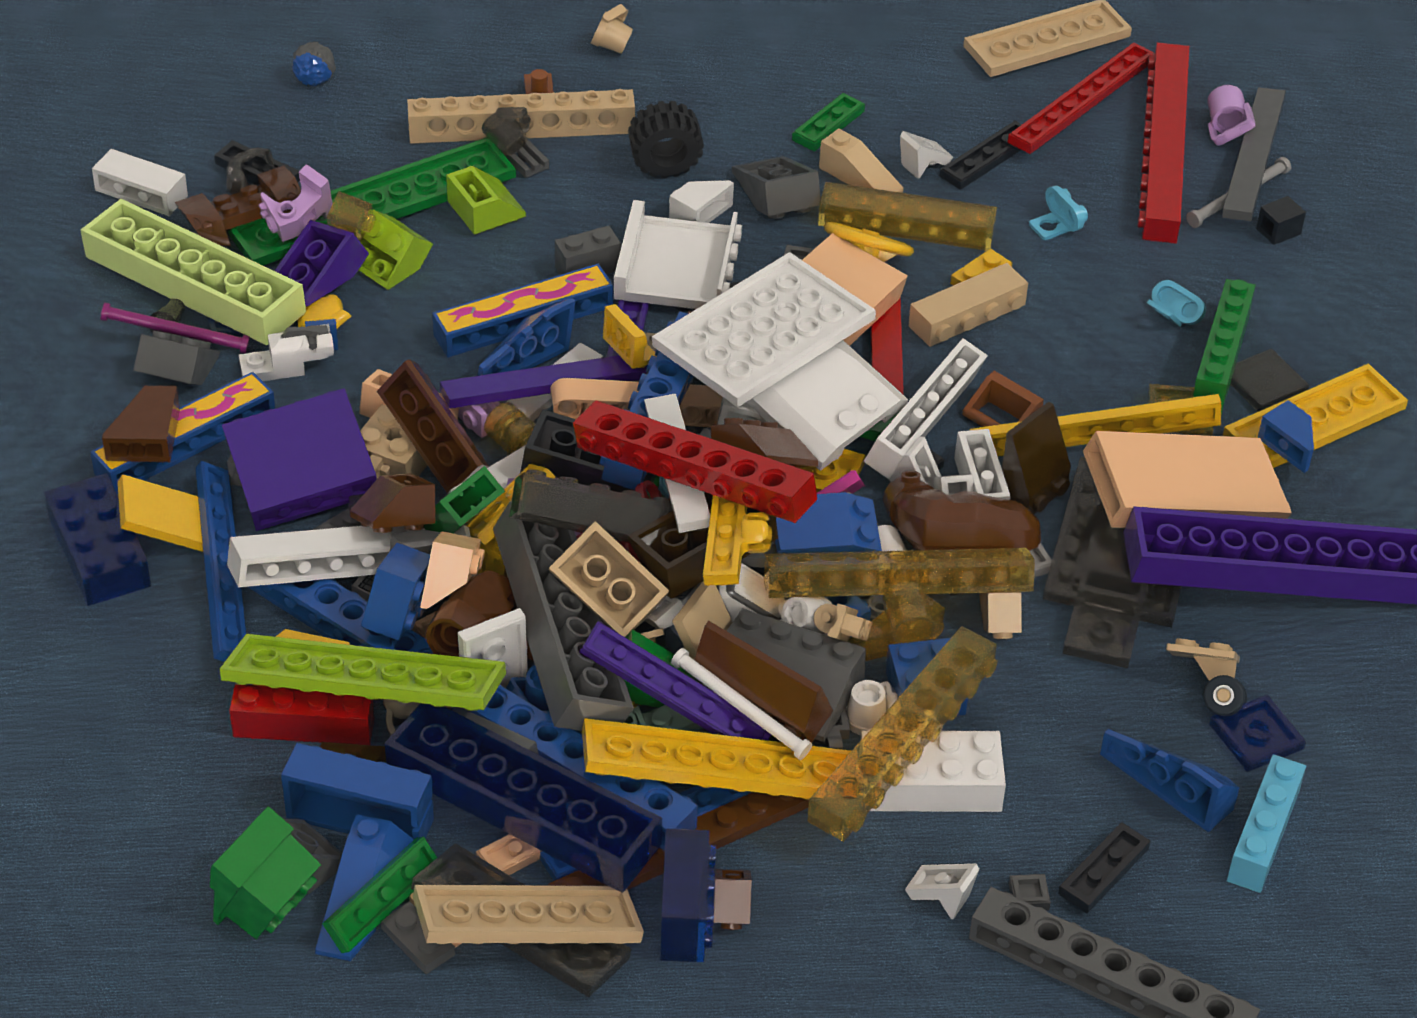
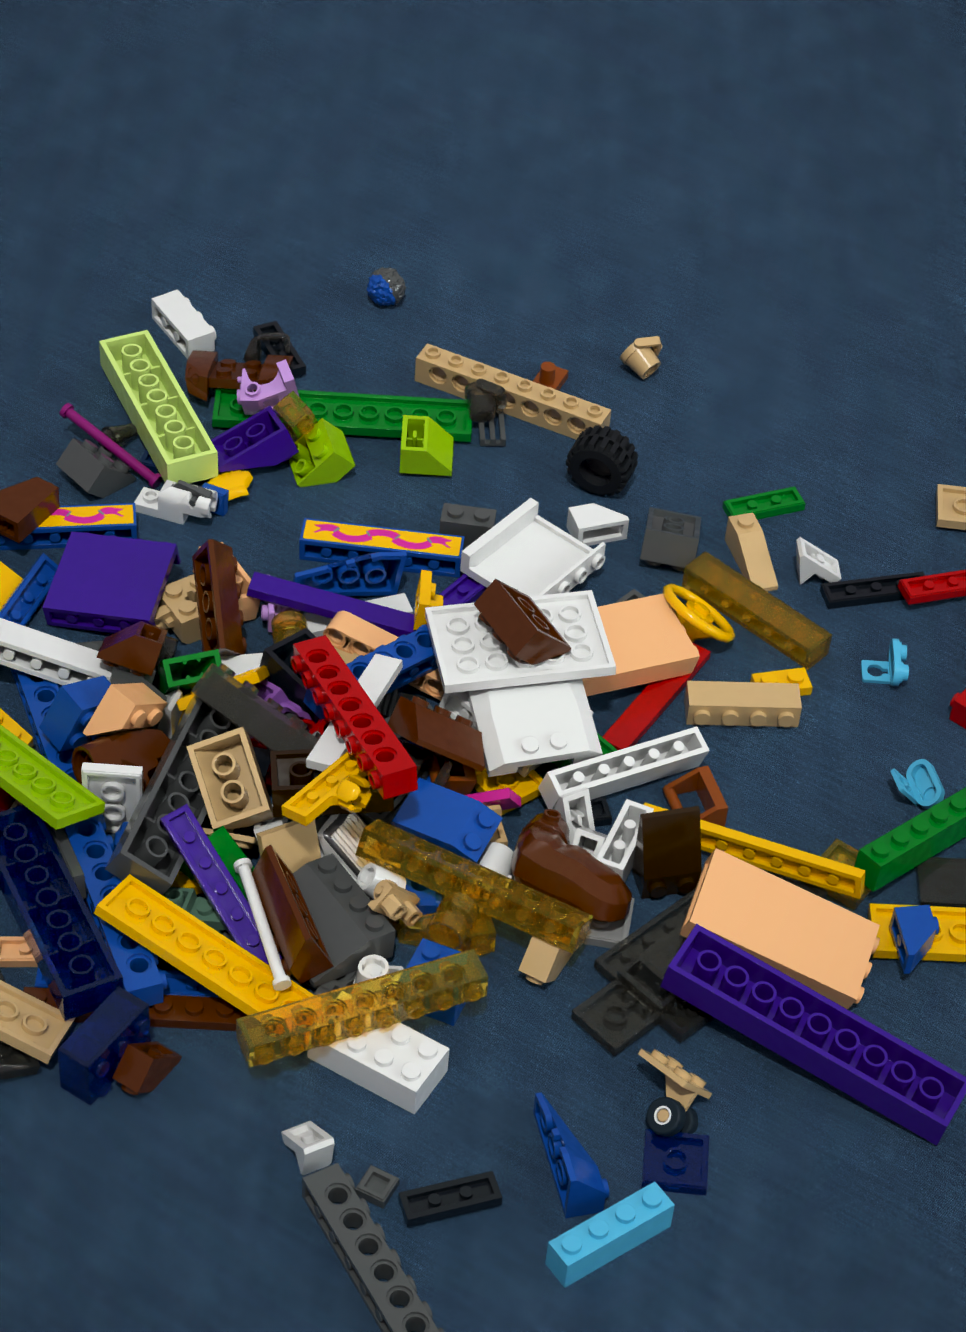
camera: 30 degrees right, 0 degrees up
(761, 310) = (519, 624): none -> reddish brown slope

